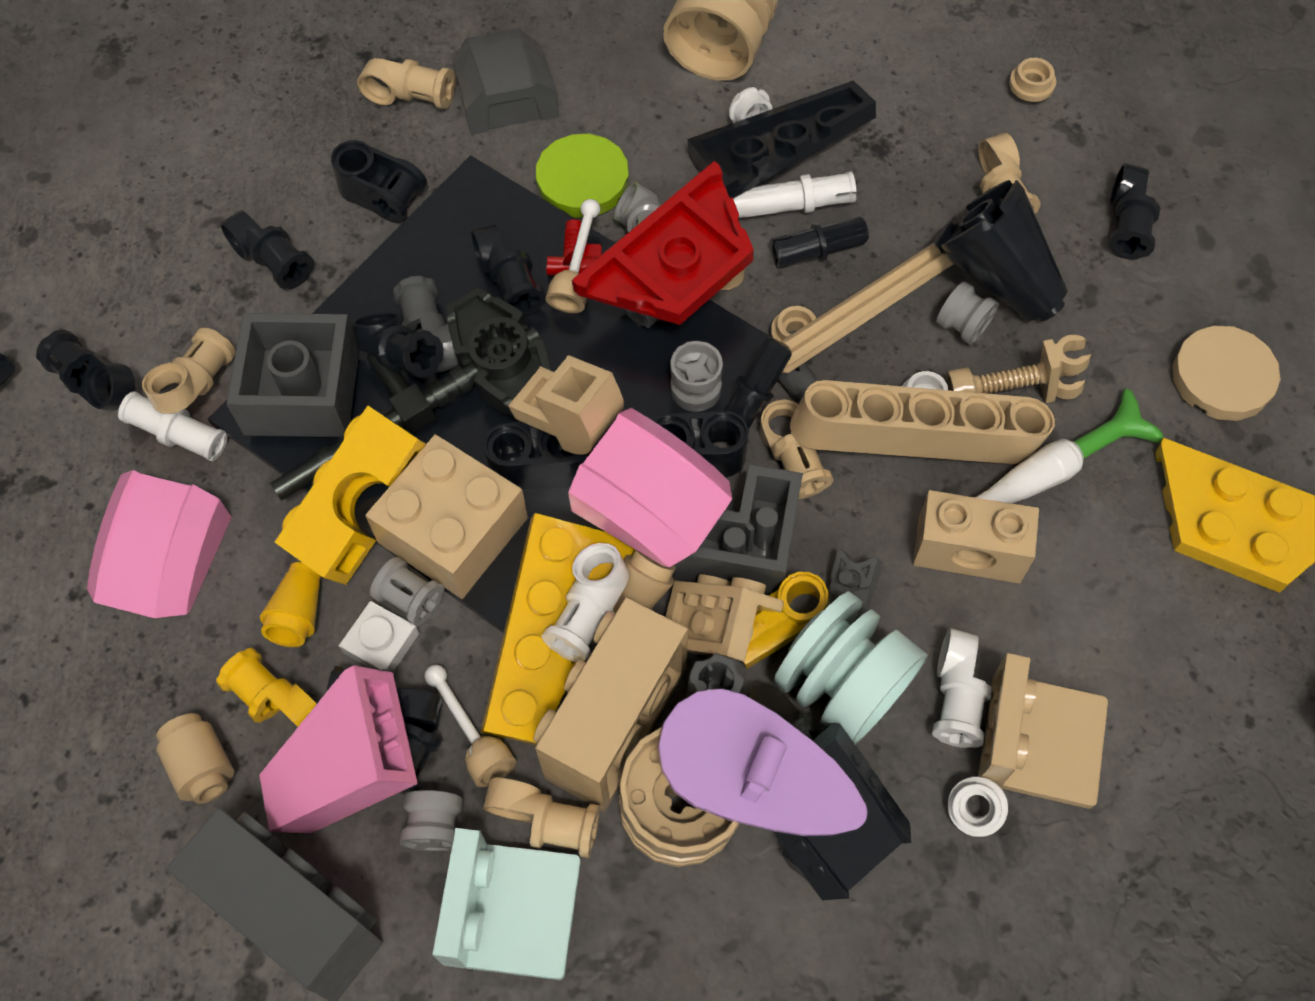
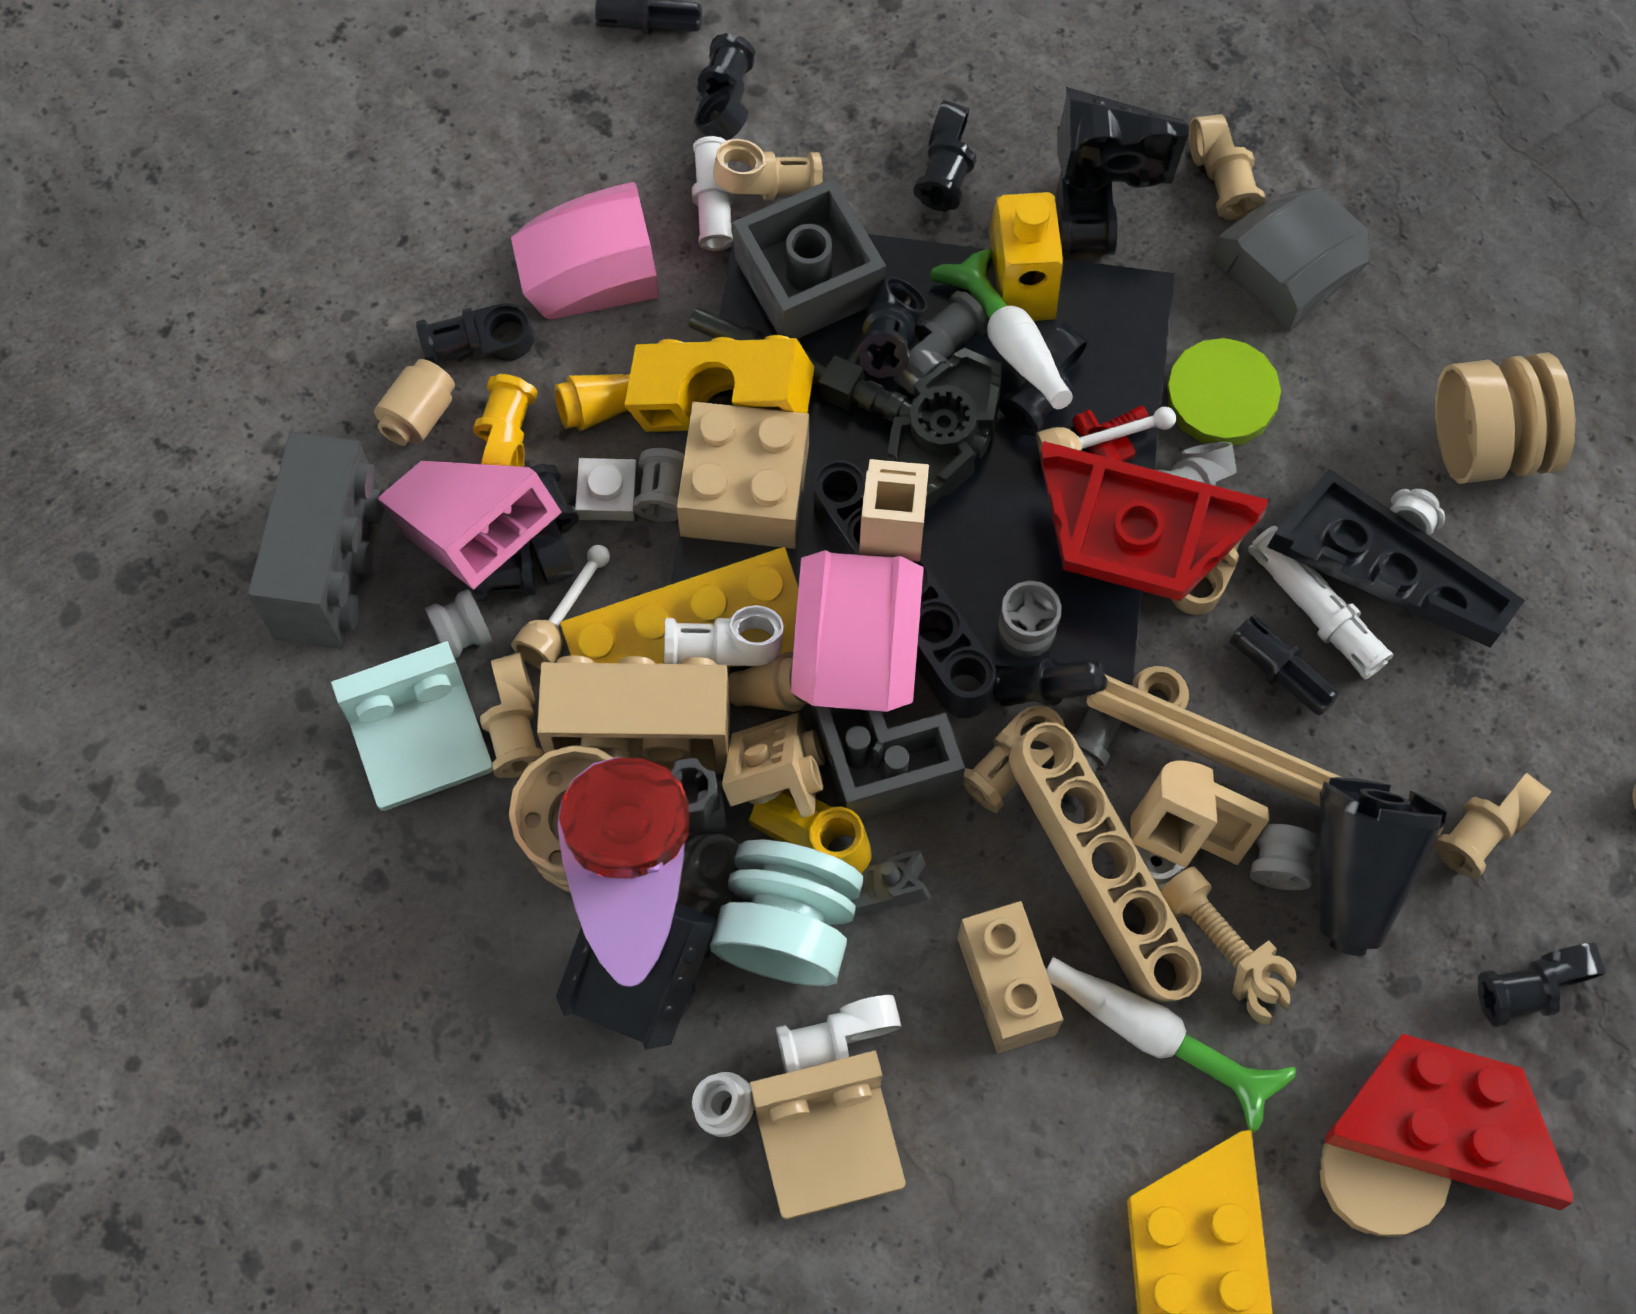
camera: 60 degrees right, 5 degrees up
(162, 680) = (473, 334): none -> black connector
(356, 114) = (1117, 143): none -> black slope
(397, 226) = (1024, 240): none -> yellow torso
(455, 265) = (1008, 327): none -> white piece
(732, 737) = (624, 817): none -> clear red tile
(914, 347) = (1193, 812): none -> tan brick
(1212, 308) = (1455, 1120): none -> red wing

